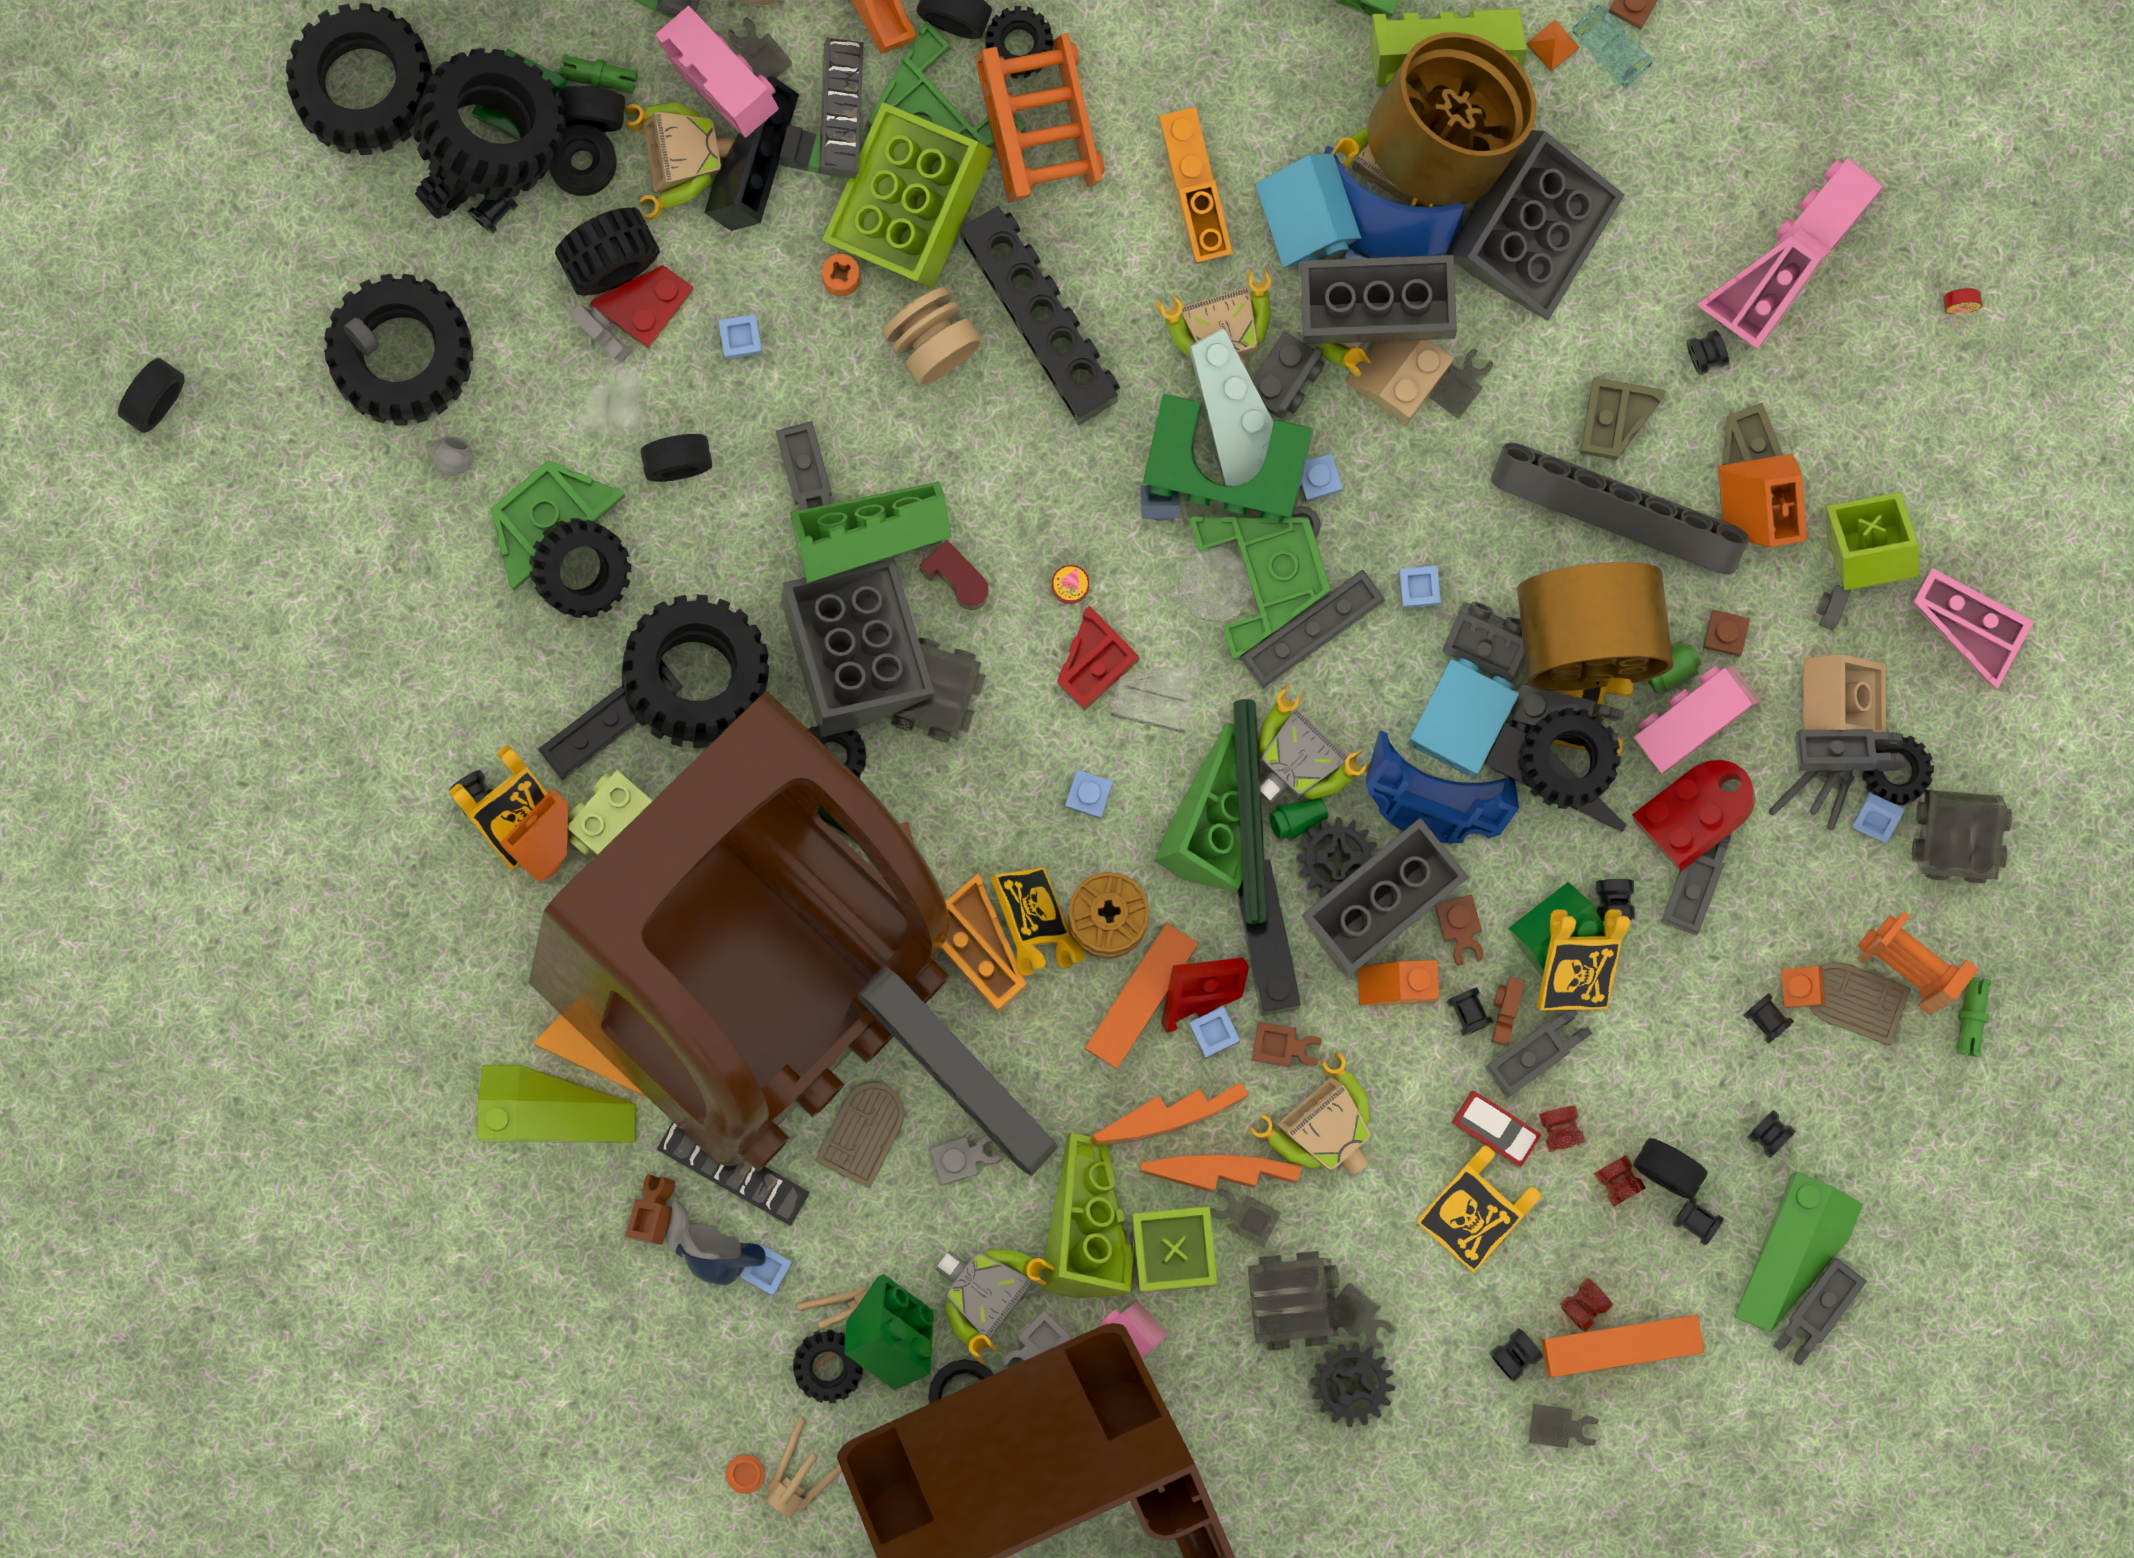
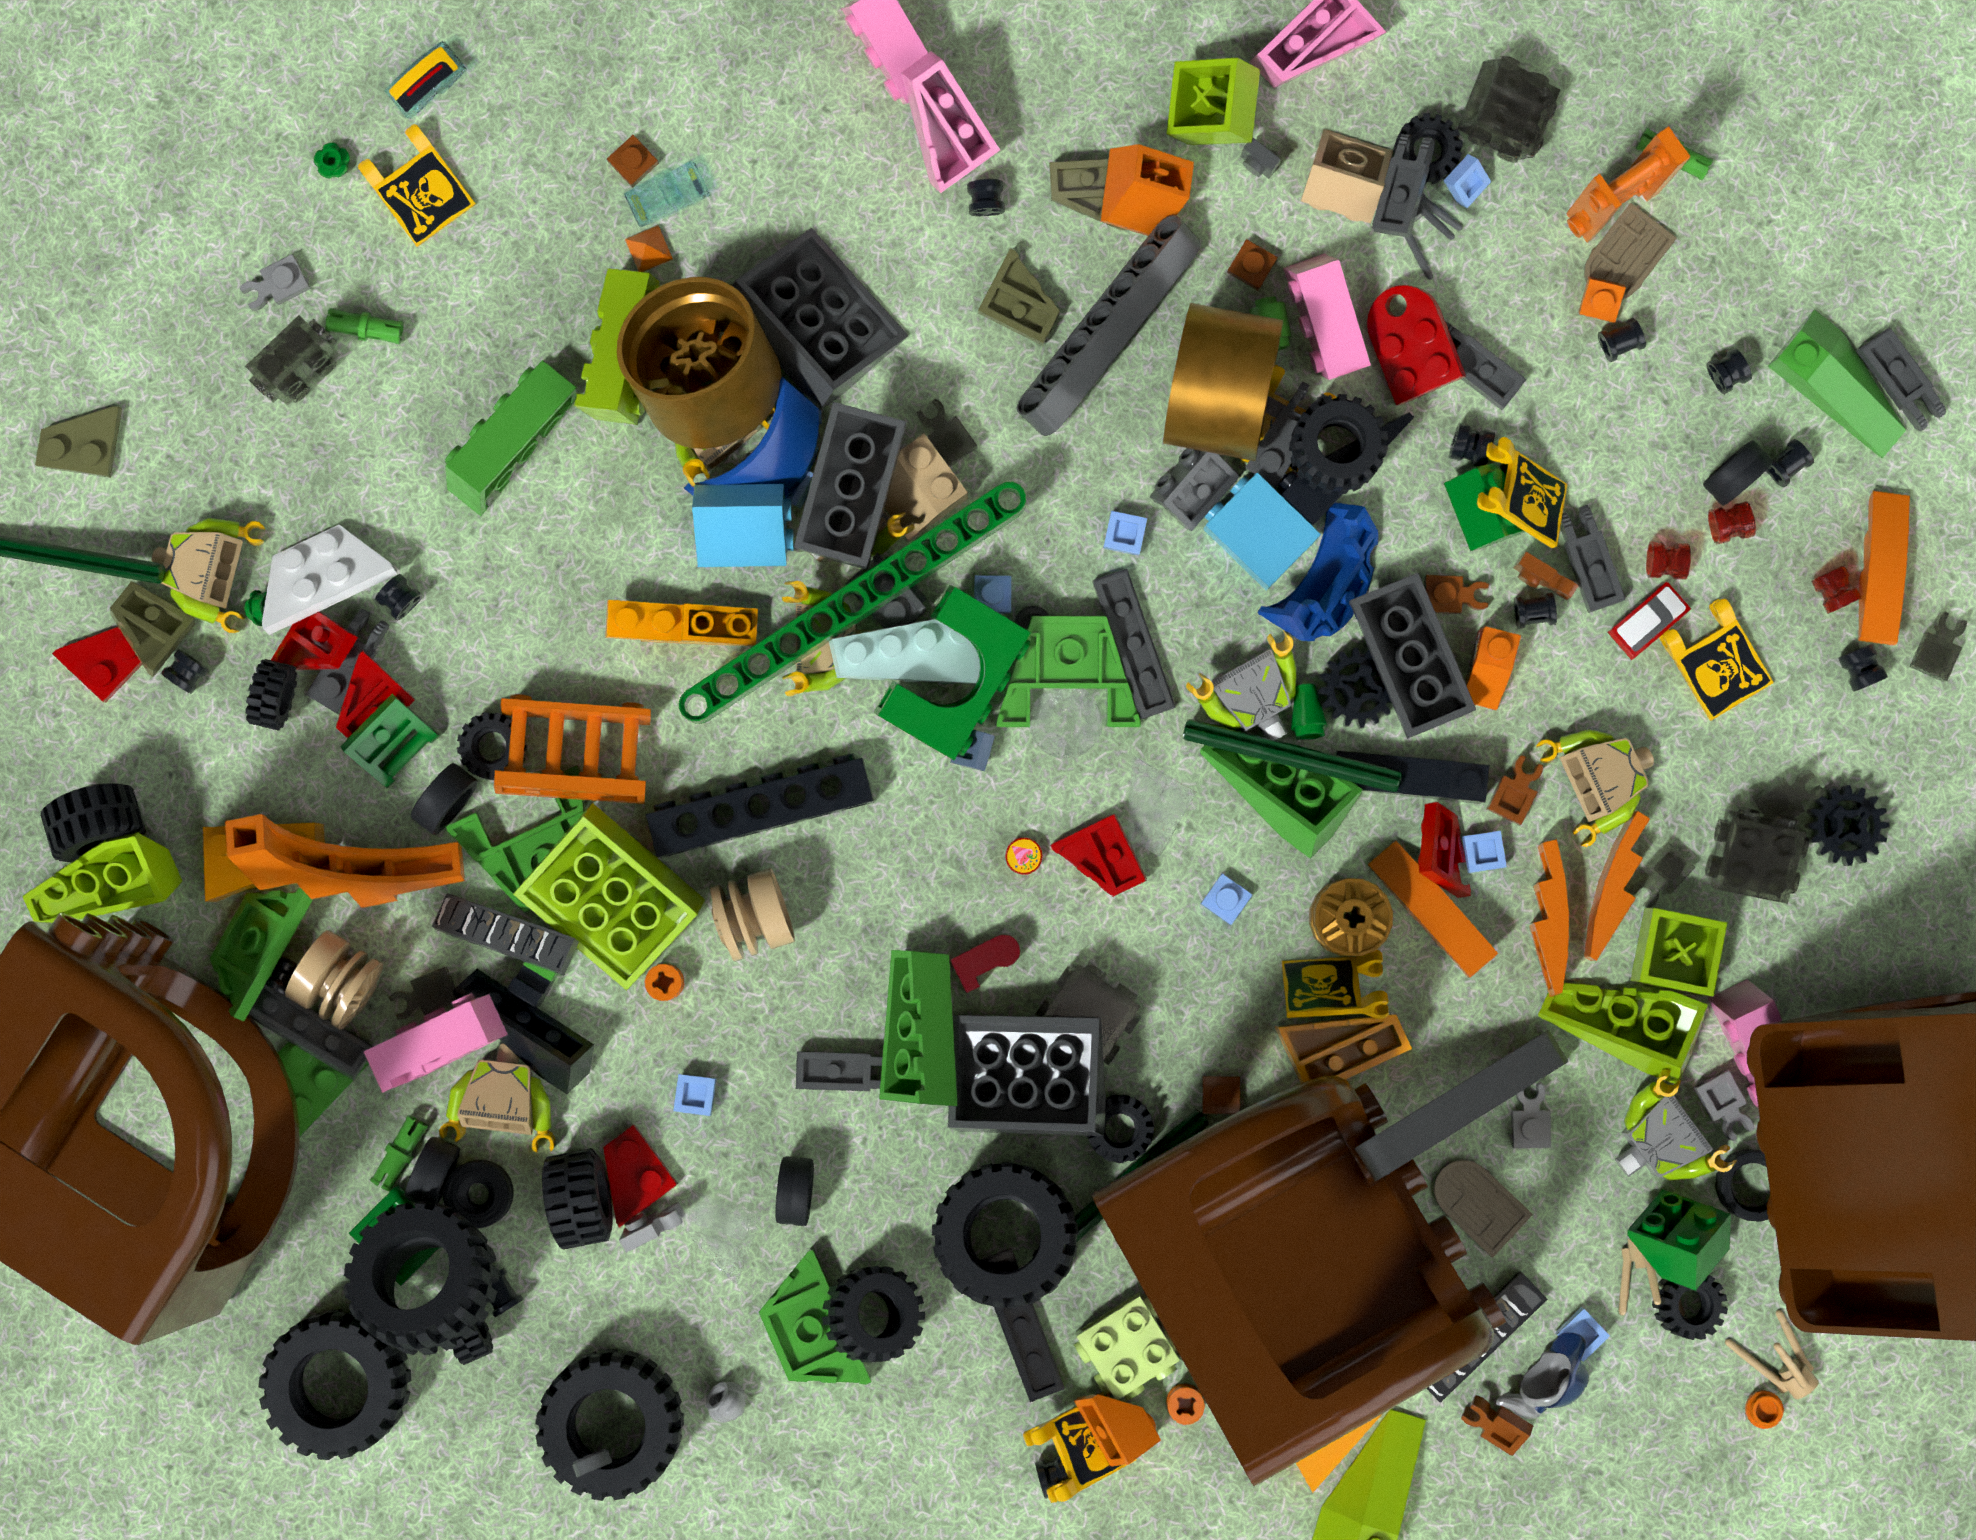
camera: 60 degrees left, 5 degrees up
(1259, 321) = (863, 586): none -> green beam

